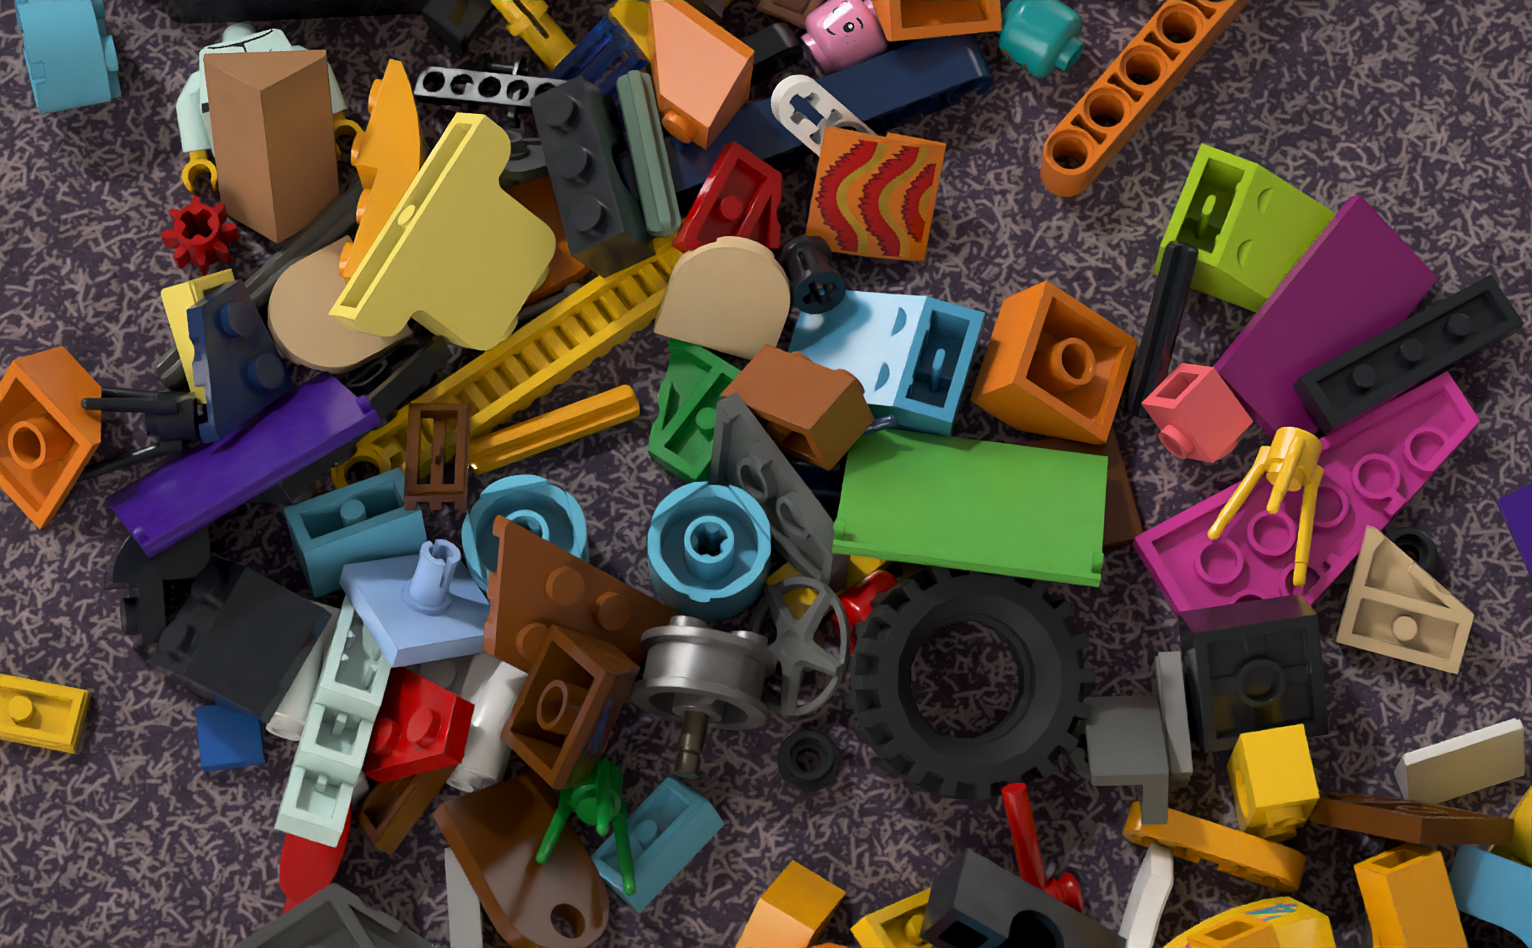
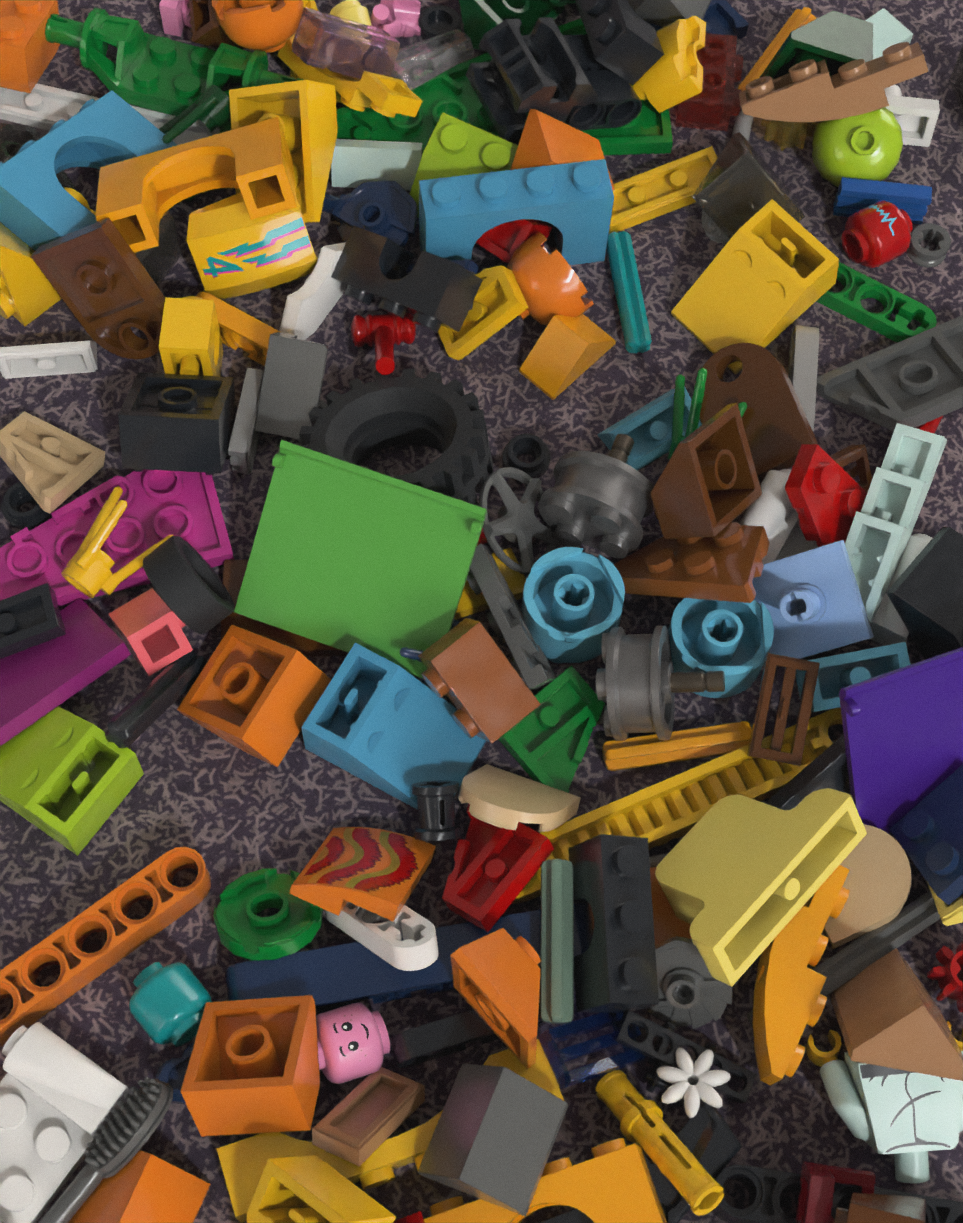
camera: 170 degrees left, 5 degrees down
(484, 46) = (693, 1073): none -> white plant
(605, 457) = (643, 684): none -> flat silver wheel
(999, 129) = (269, 936): none -> green tile
(1187, 439) = (188, 585): none -> black tyre

